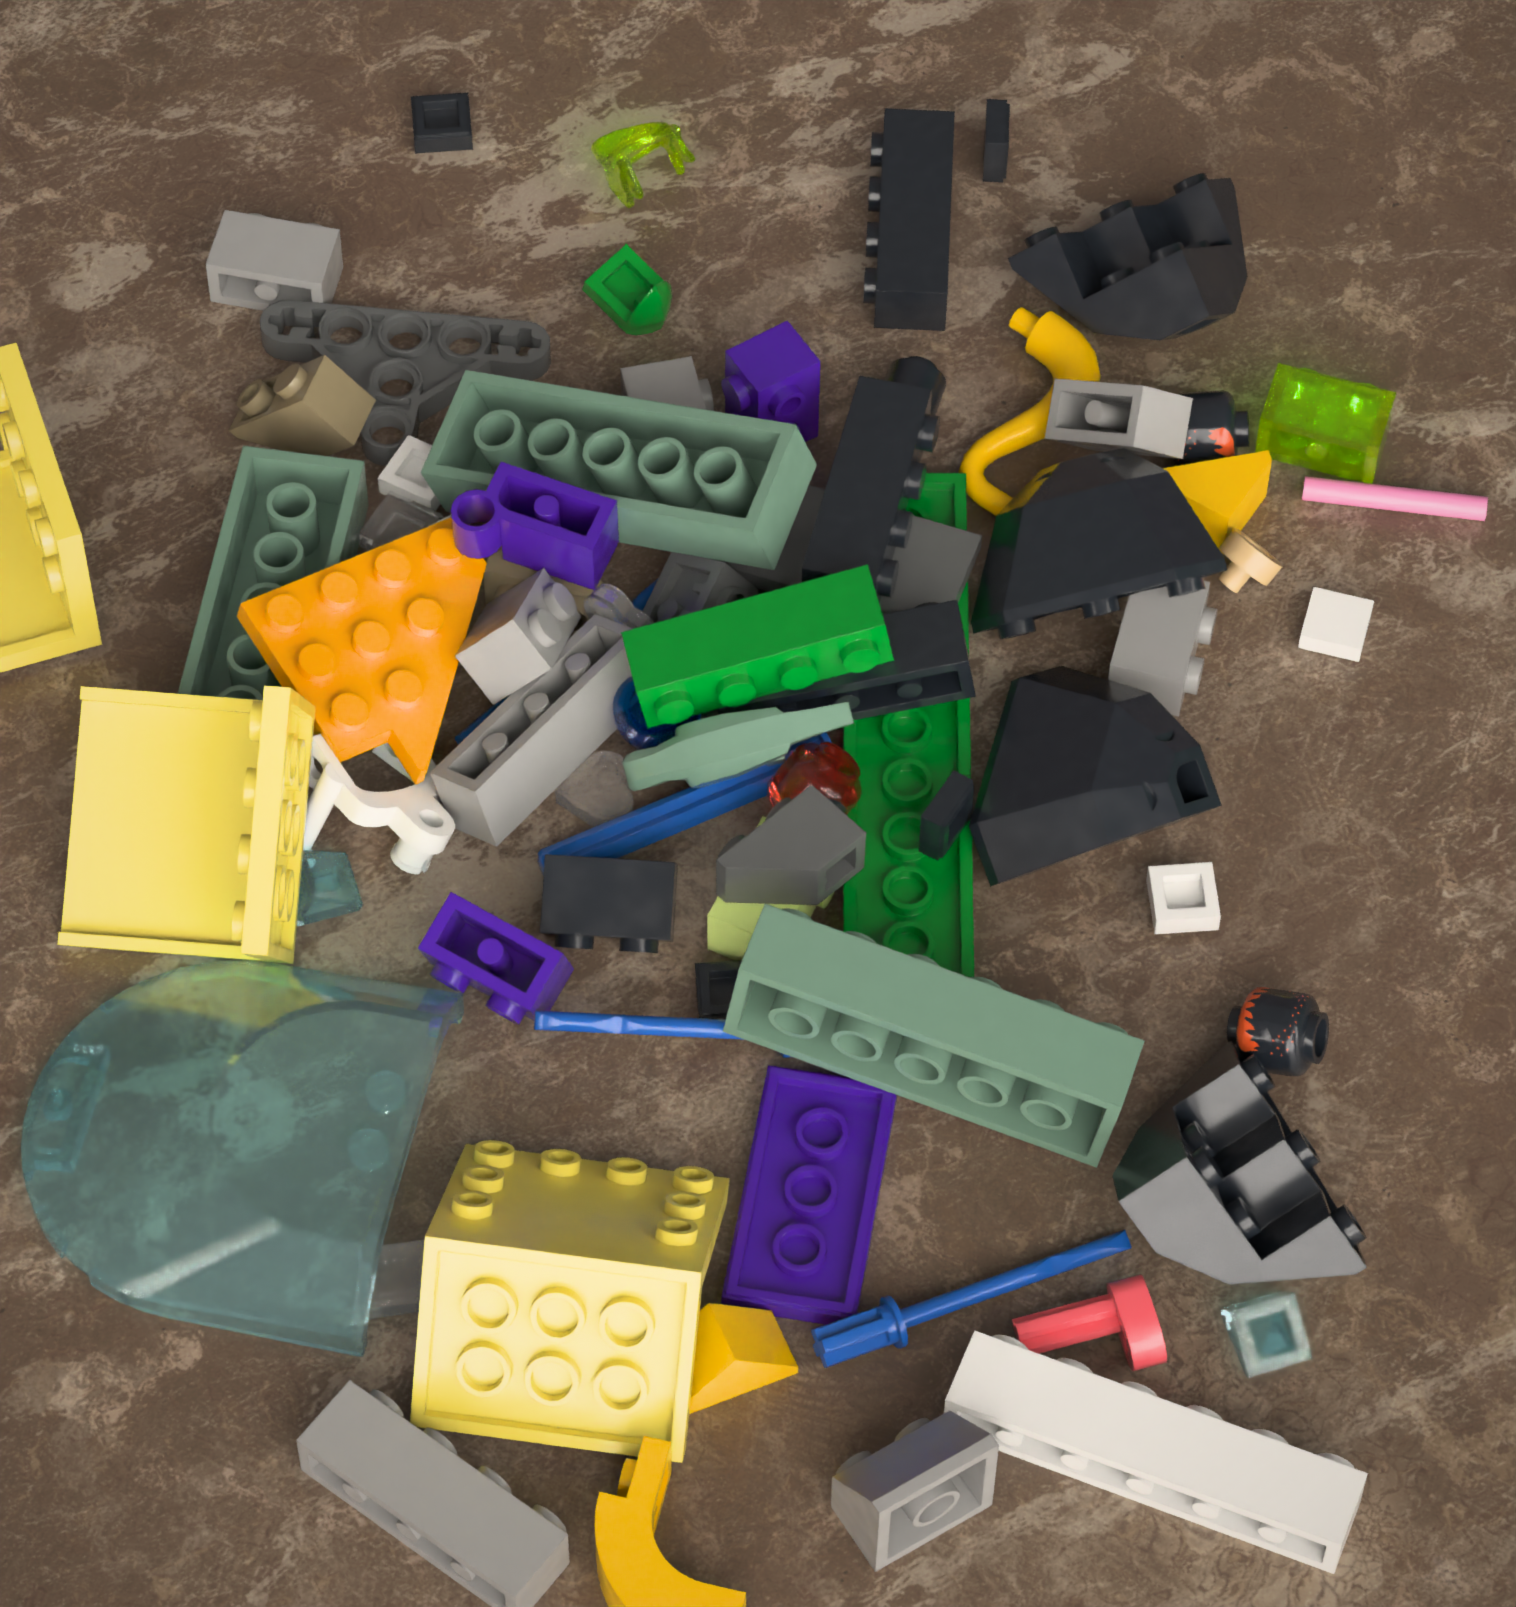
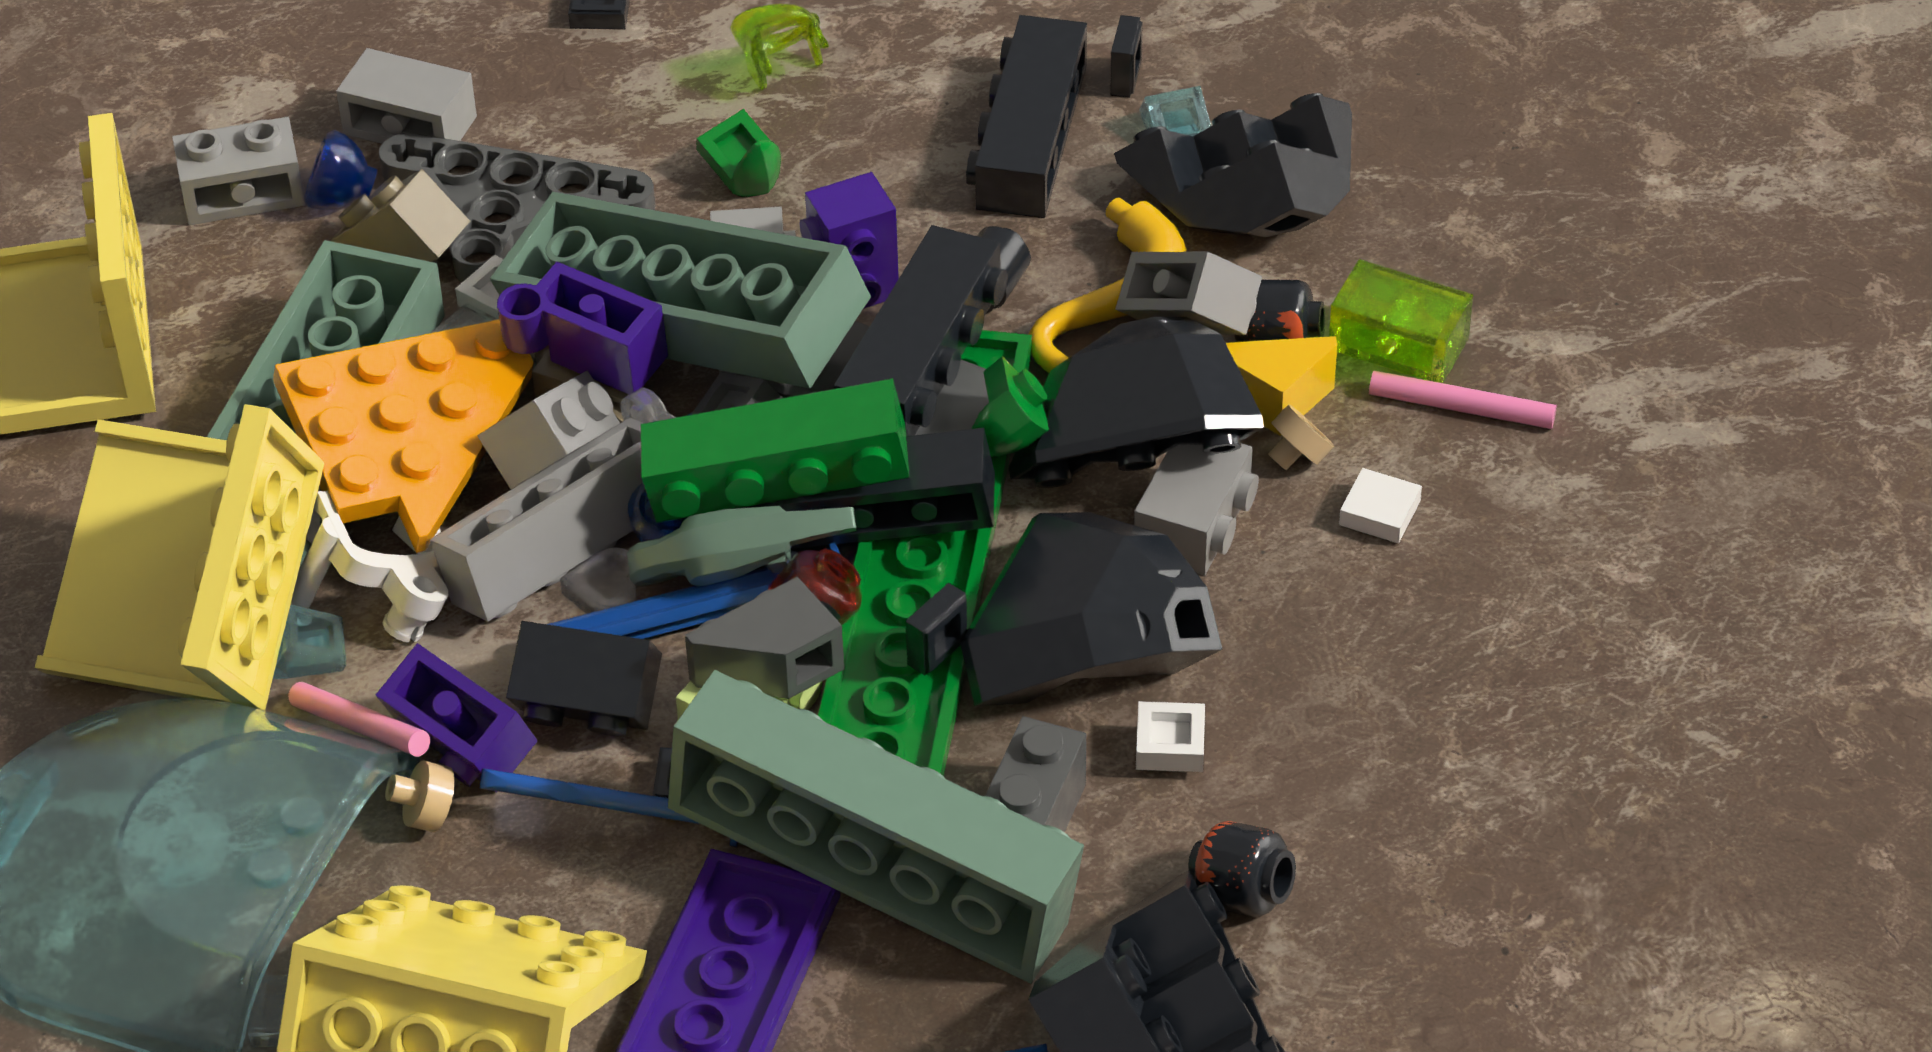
camera: 10 degrees right, 10 degrees down
(120, 361) = (238, 170): none -> light grey brick
(223, 355) = (338, 174): none -> clear blue brick
(399, 969) = (359, 719): none -> bright pink bar
(481, 1042) = (424, 795): none -> tan tile
(980, 571) = (1014, 409): none -> green plate
(1059, 204) = (1177, 110): none -> clear light blue slope
(1072, 958) = (1042, 772): none -> dark grey brick

